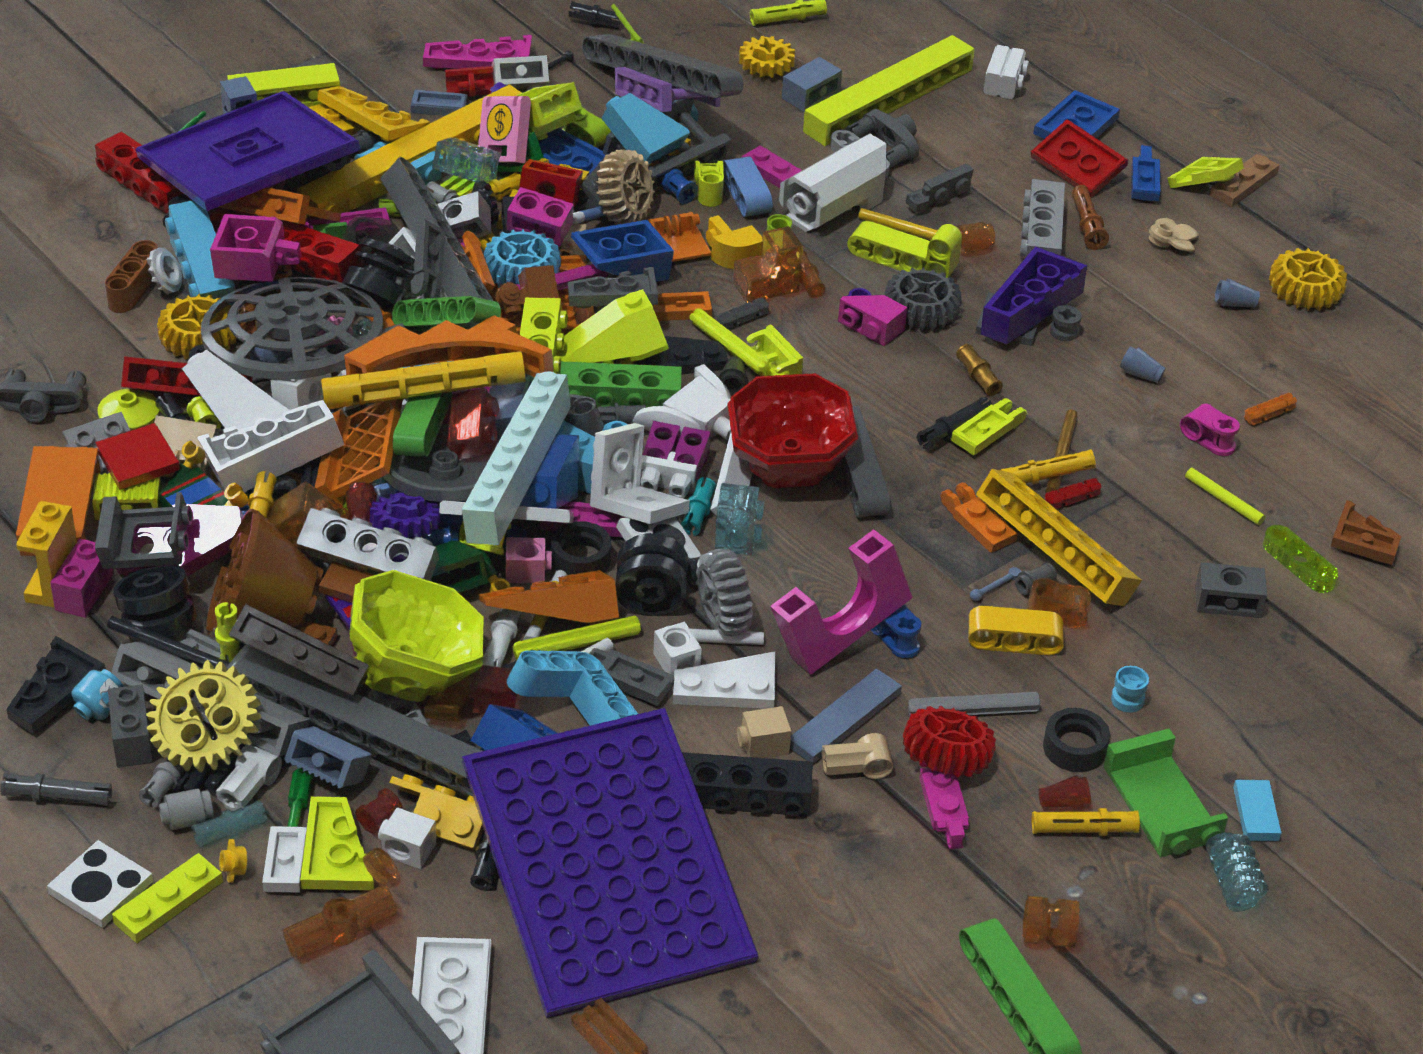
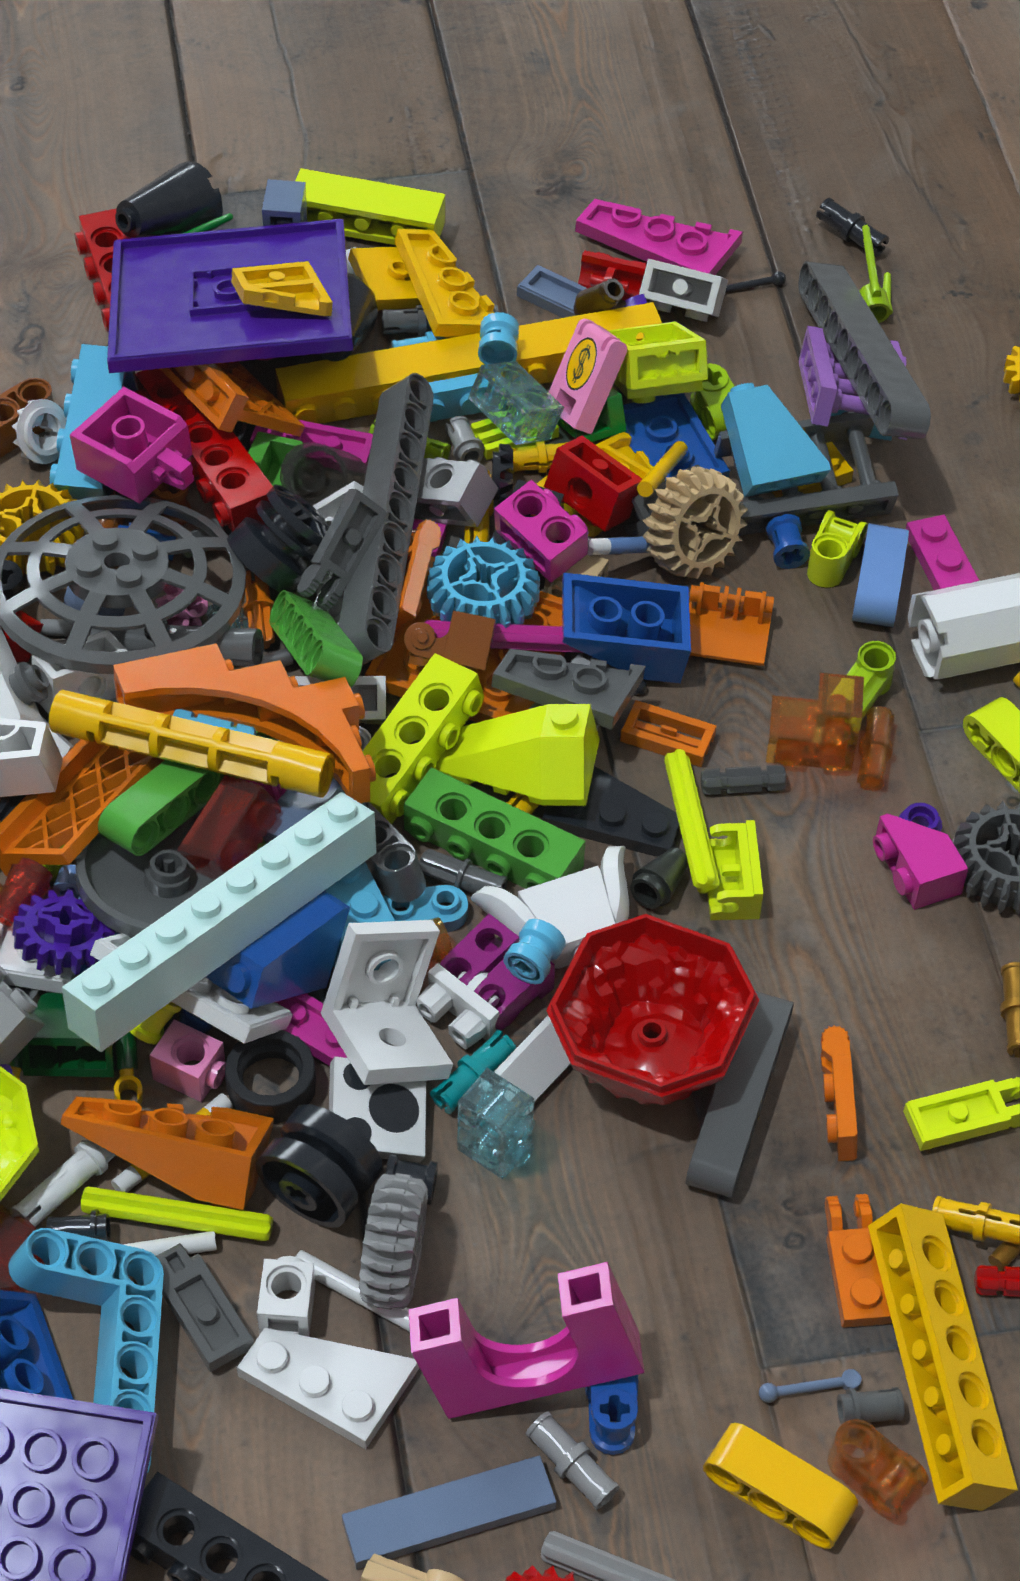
camera: 30 degrees right, 10 degrees up
(158, 116) = (170, 203): none -> black cone
(282, 394) = (29, 683): none -> dark grey plate
(290, 128) = (283, 287): none -> yellow wing
(433, 127) = (498, 338): none -> medium azure wheel
(473, 91) = (598, 297): none -> dark brown cone
(586, 165) = (662, 469): none -> yellow bar
(699, 424) = (532, 955): none -> medium azure wheel
(731, 245) = (793, 667): yellow brick -> none
(765, 732) = (312, 1492): tan brick -> none
(895, 663) = (572, 1460): none -> light grey pin
(914, 440) = (839, 1089): none -> orange hinge
(945, 426) = (908, 1087): black pin -> none

